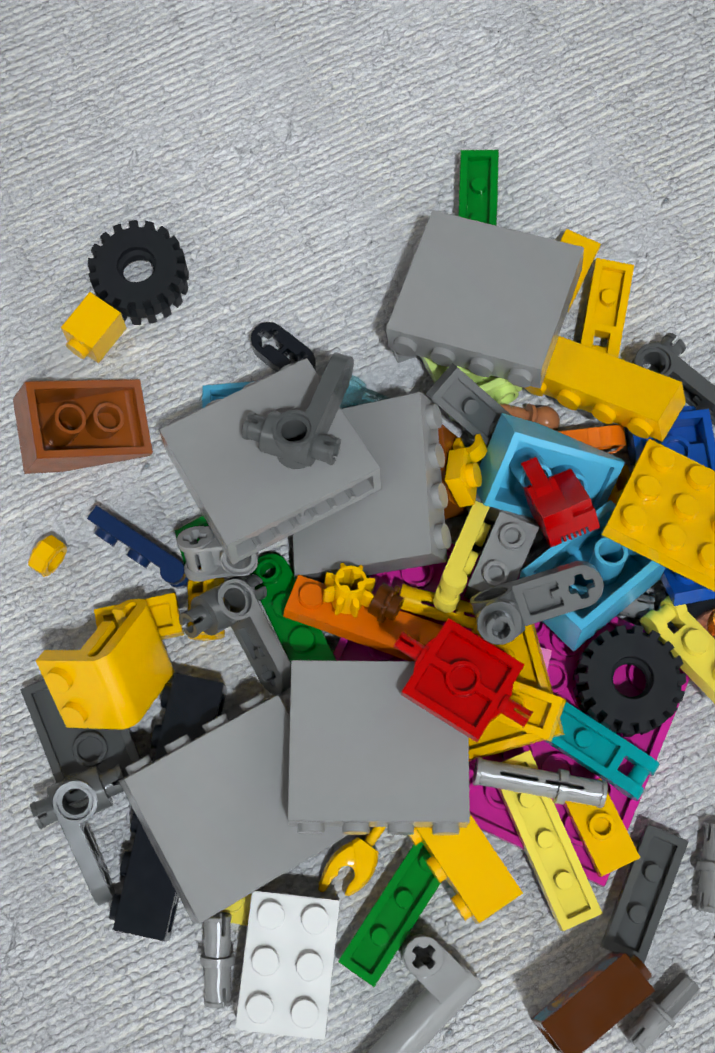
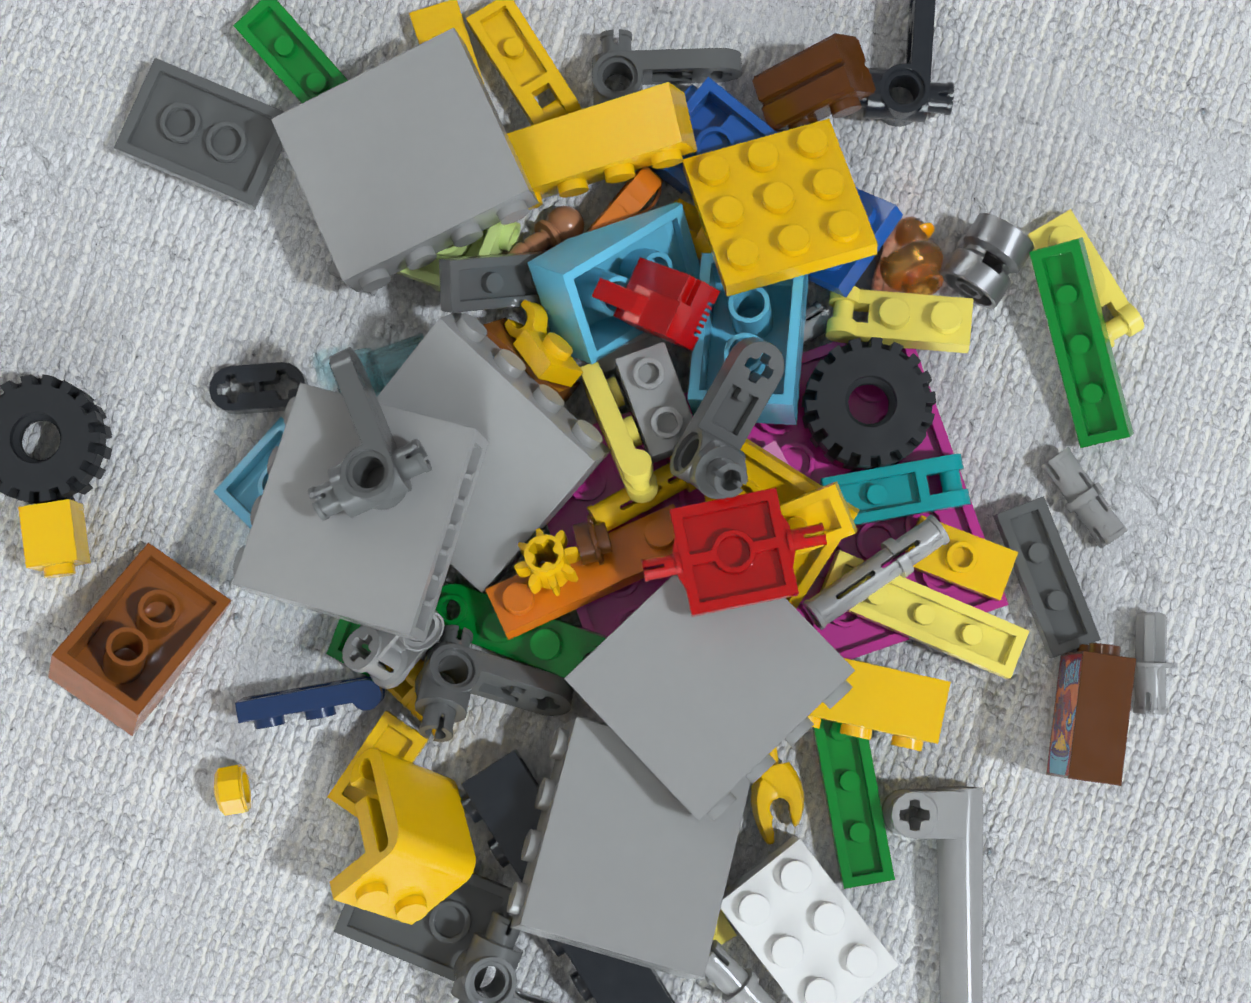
camera: 45 degrees left, 10 degrees up
(386, 191) = (202, 133): none -> dark grey plate

